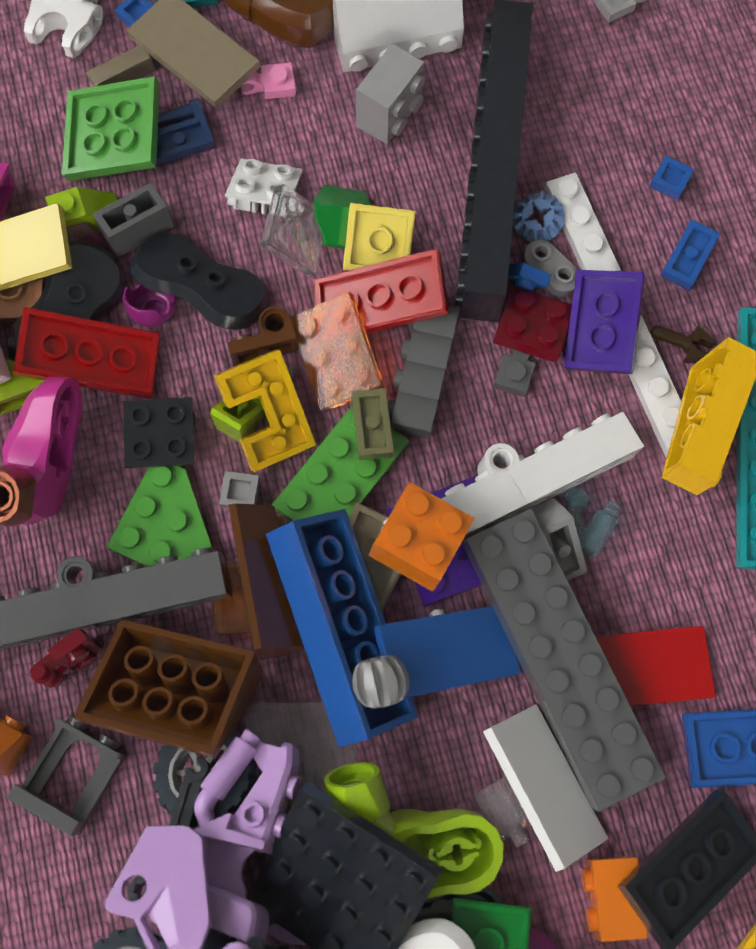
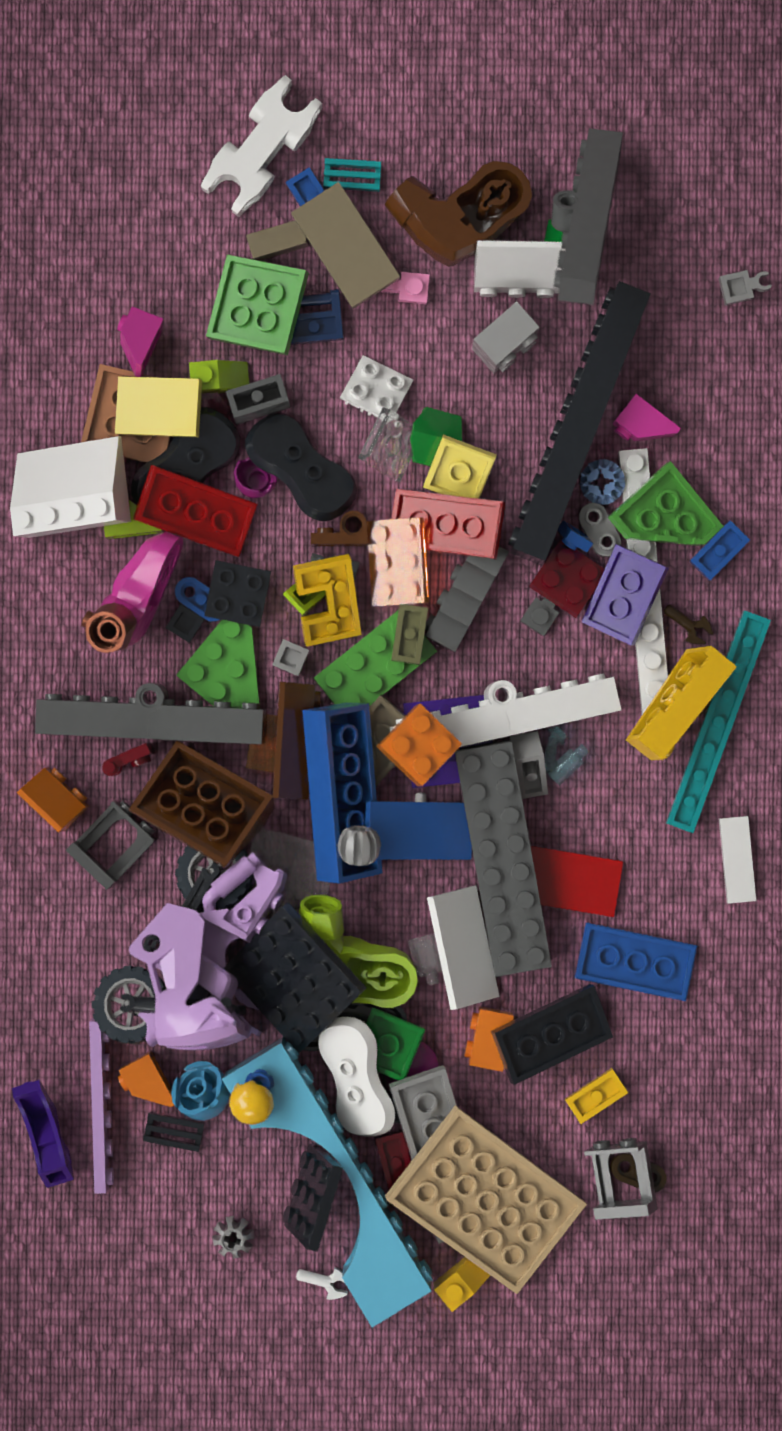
camera: 15 degrees right, 15 degrees up
(104, 484) = (185, 623): none -> black plate
(114, 457) = (198, 601): none -> blue plate
(565, 146) = (643, 422): none -> dark pink slope
(620, 225) = (666, 512): none -> bright green plate
(671, 177) = (728, 475): blue plate -> none

